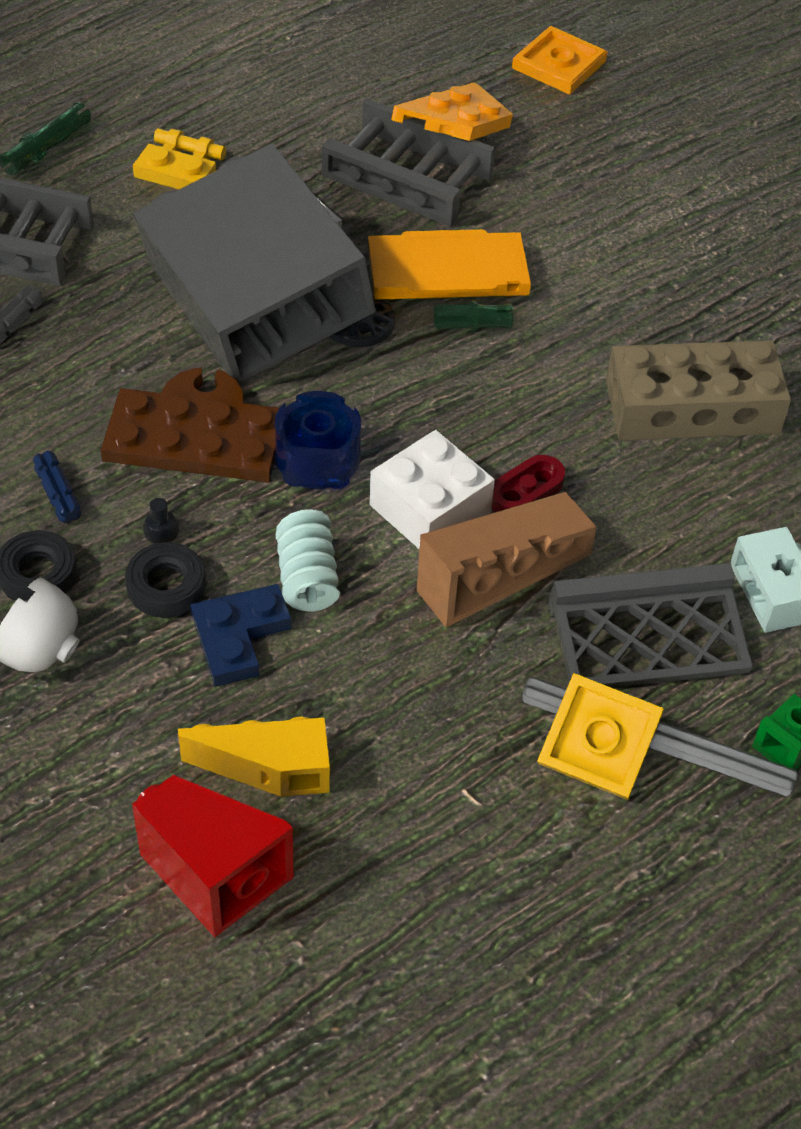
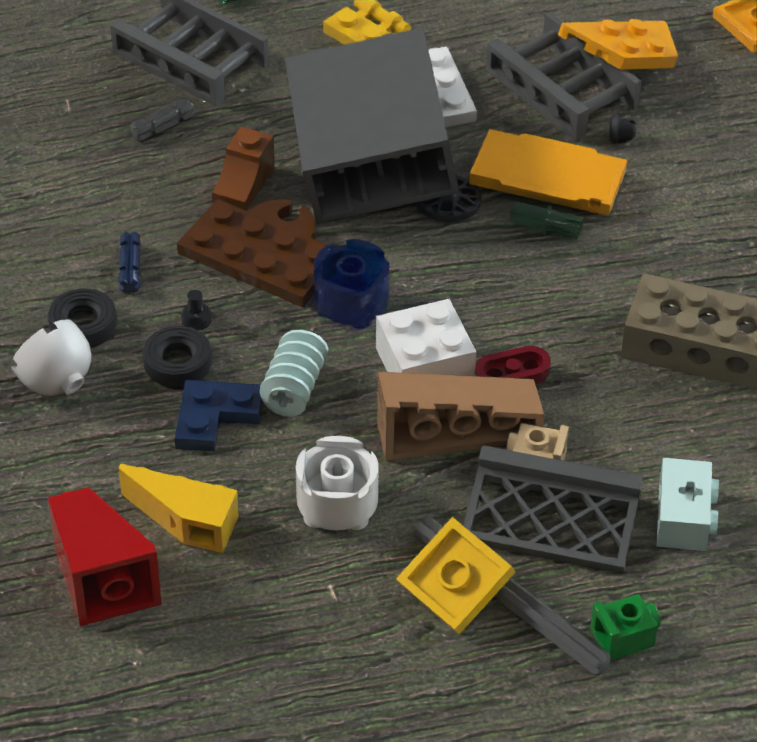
camera: 25 degrees right, 5 degrees down
(133, 345) = (245, 168): none -> dark orange arch
(423, 673) = (337, 484): none -> white brick
(492, 202) = (621, 128): none -> black piece
(602, 558) = (539, 441): none -> tan brick

